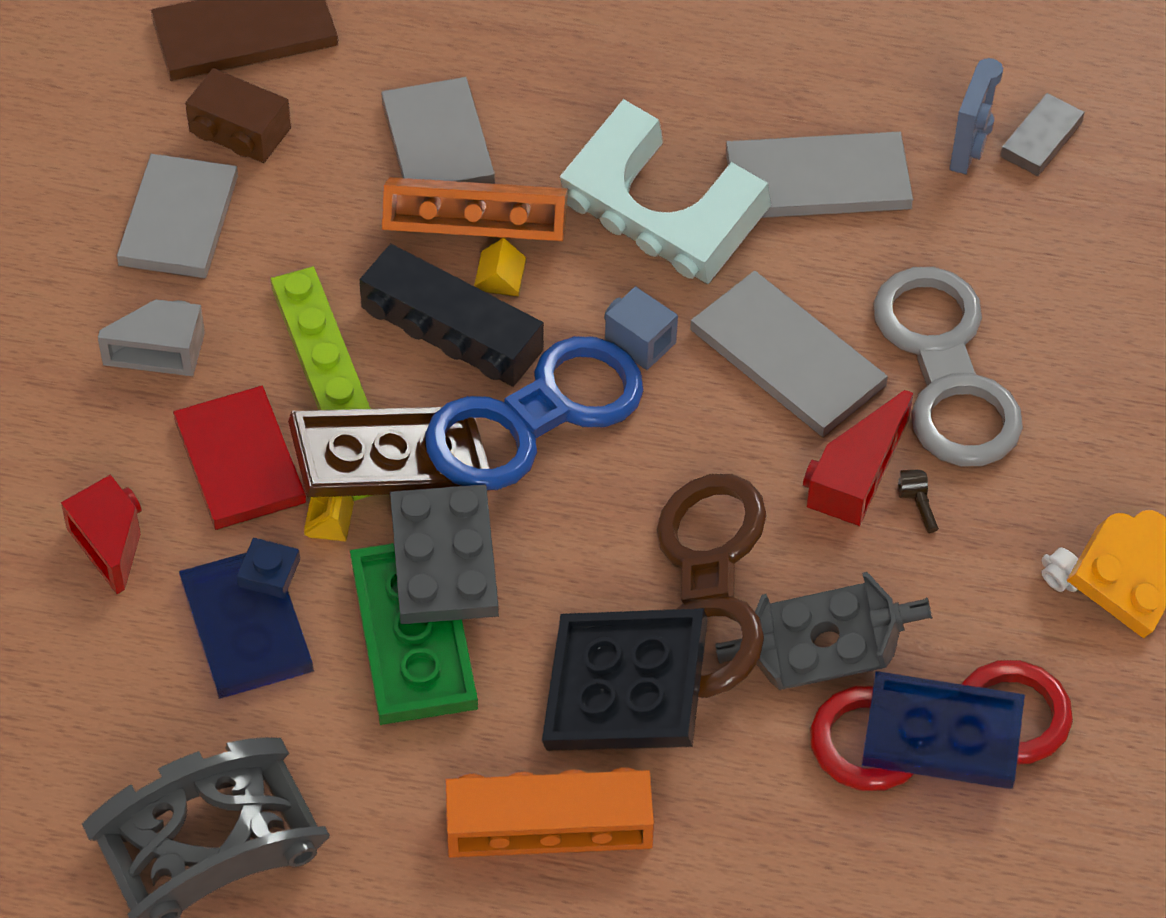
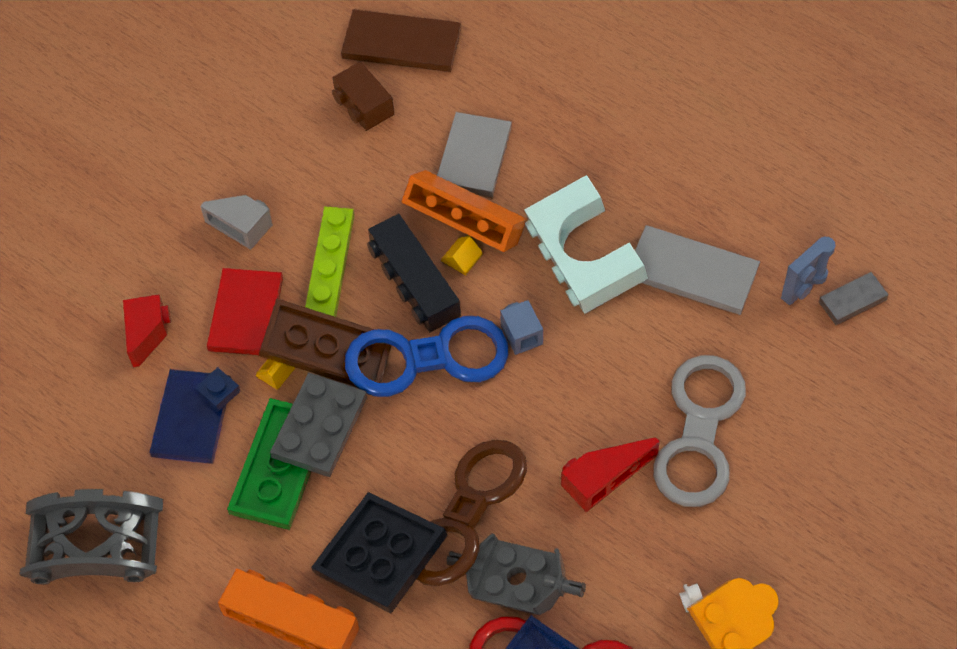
camera: 30 degrees right, 5 degrees up
(178, 216) = (296, 145): light grey tile -> none
(788, 353) = (606, 380): light grey tile -> none
(915, 485) = (631, 500): dark brown hand -> none

